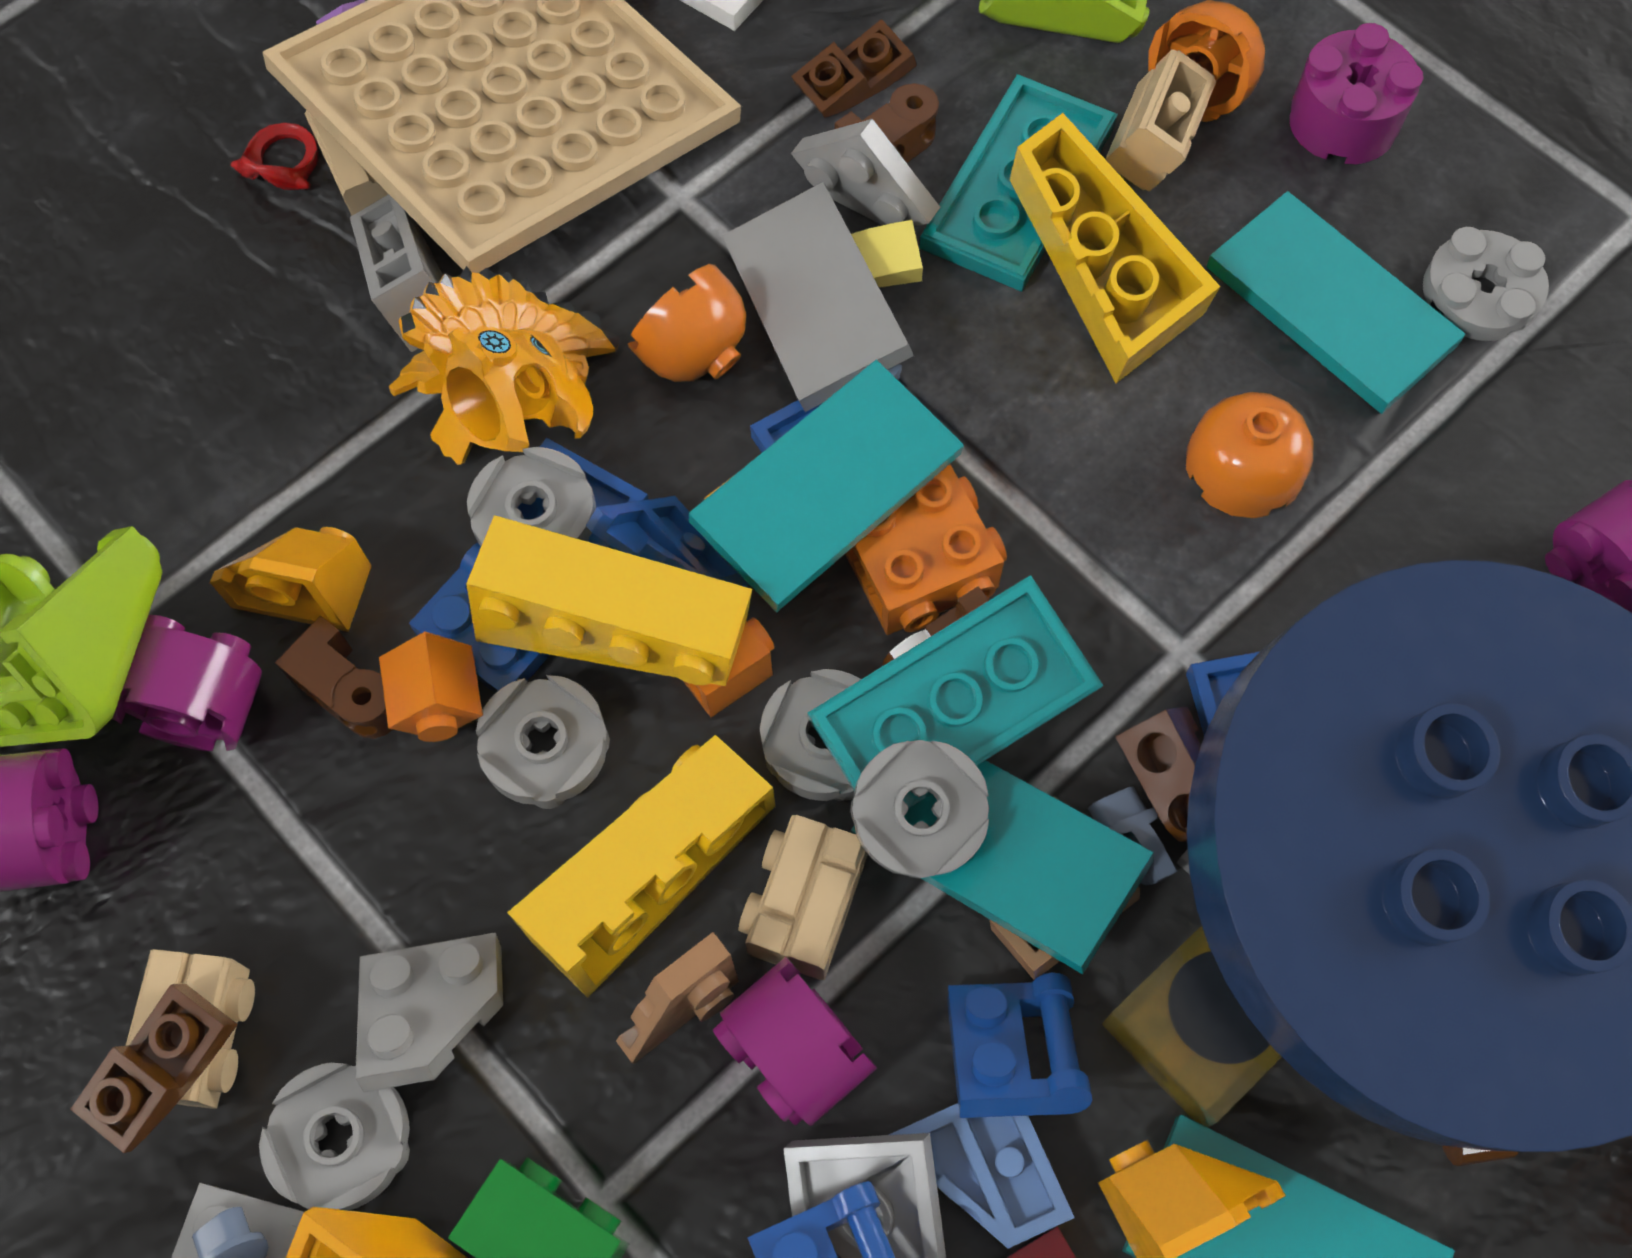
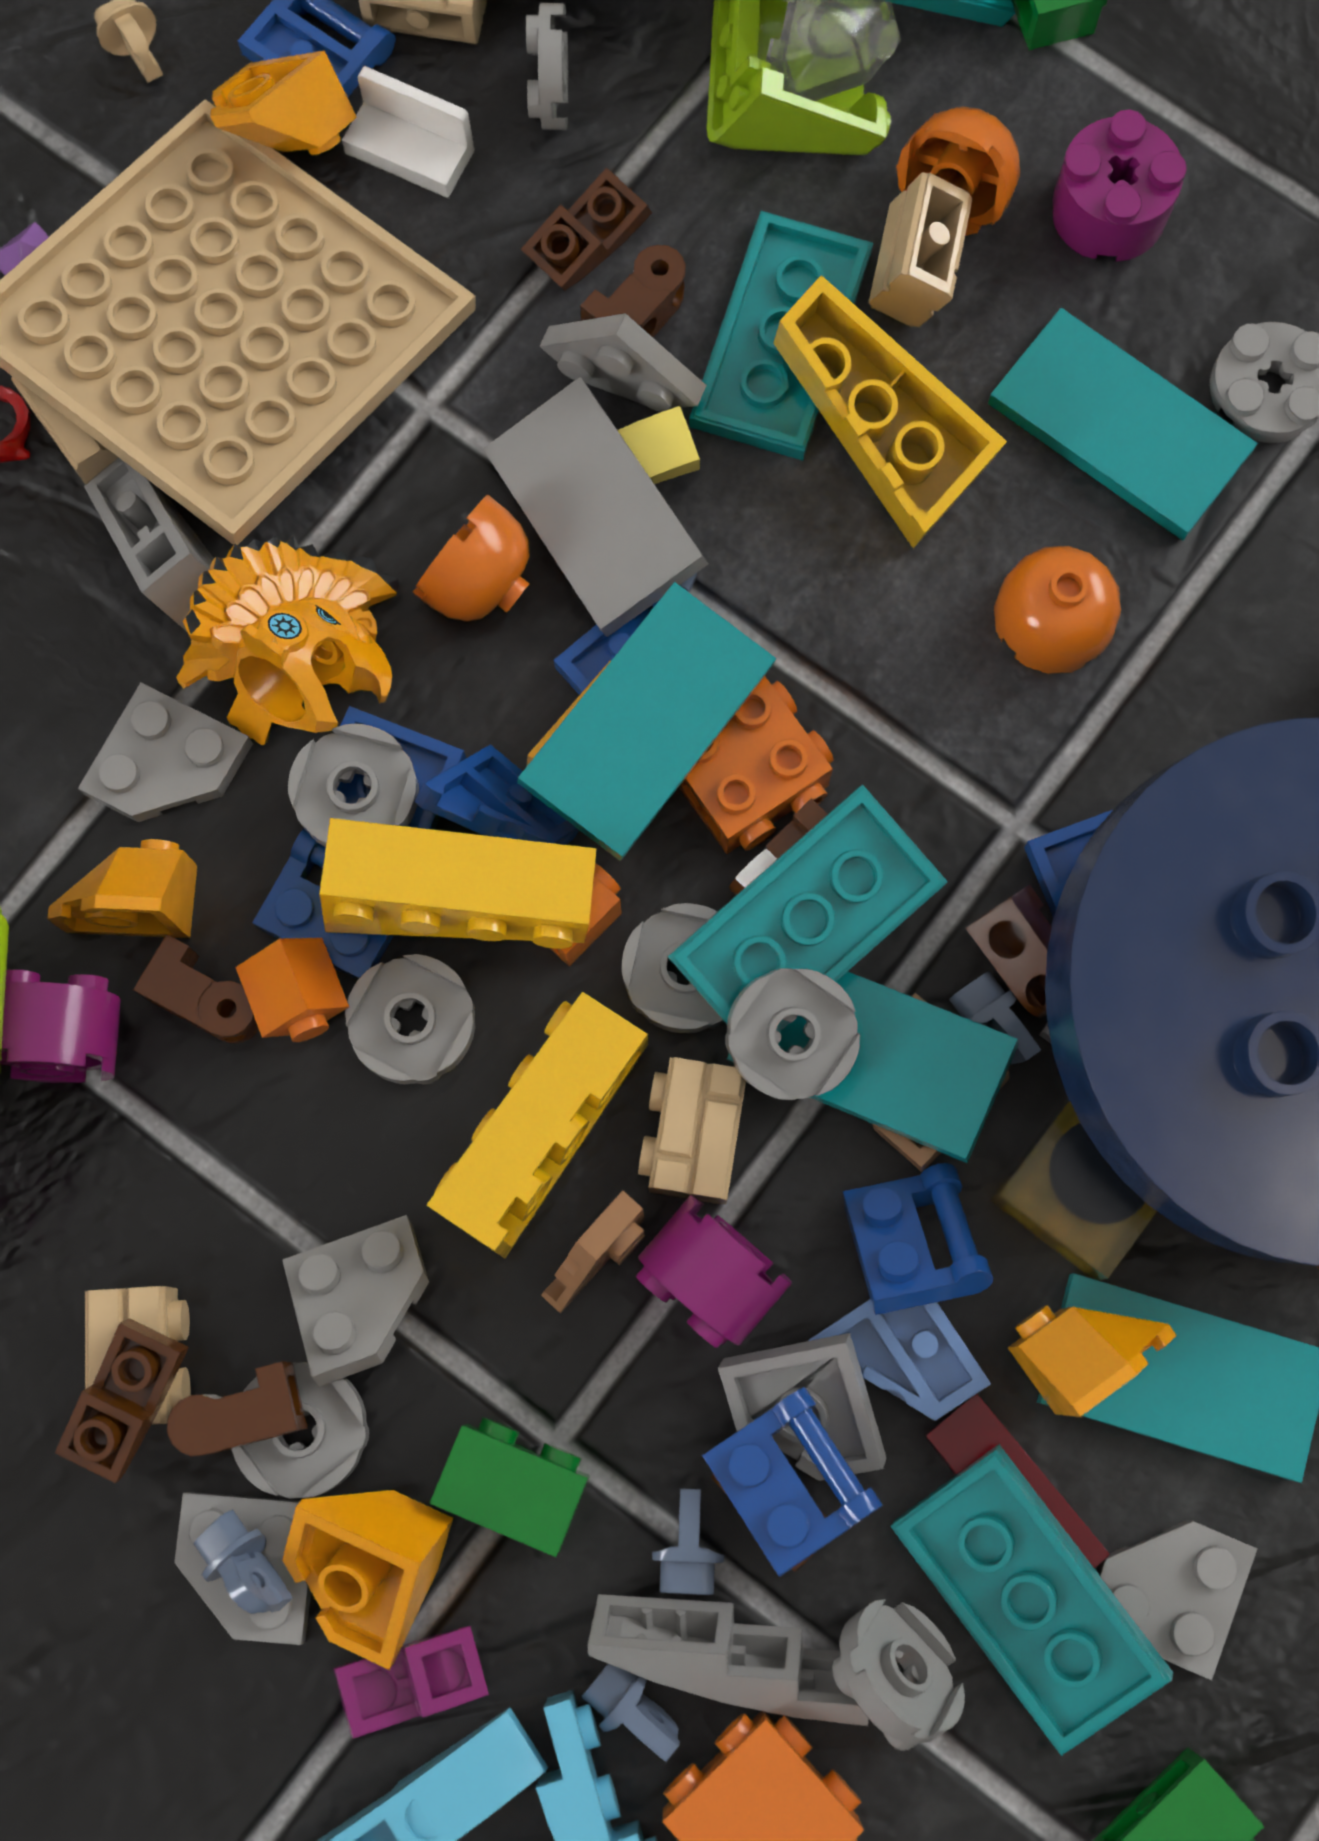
camera: 10 degrees left, 10 degrees up
(273, 1109) = (217, 1423): none -> reddish brown leg
(362, 461) = (163, 757): none -> light grey plate

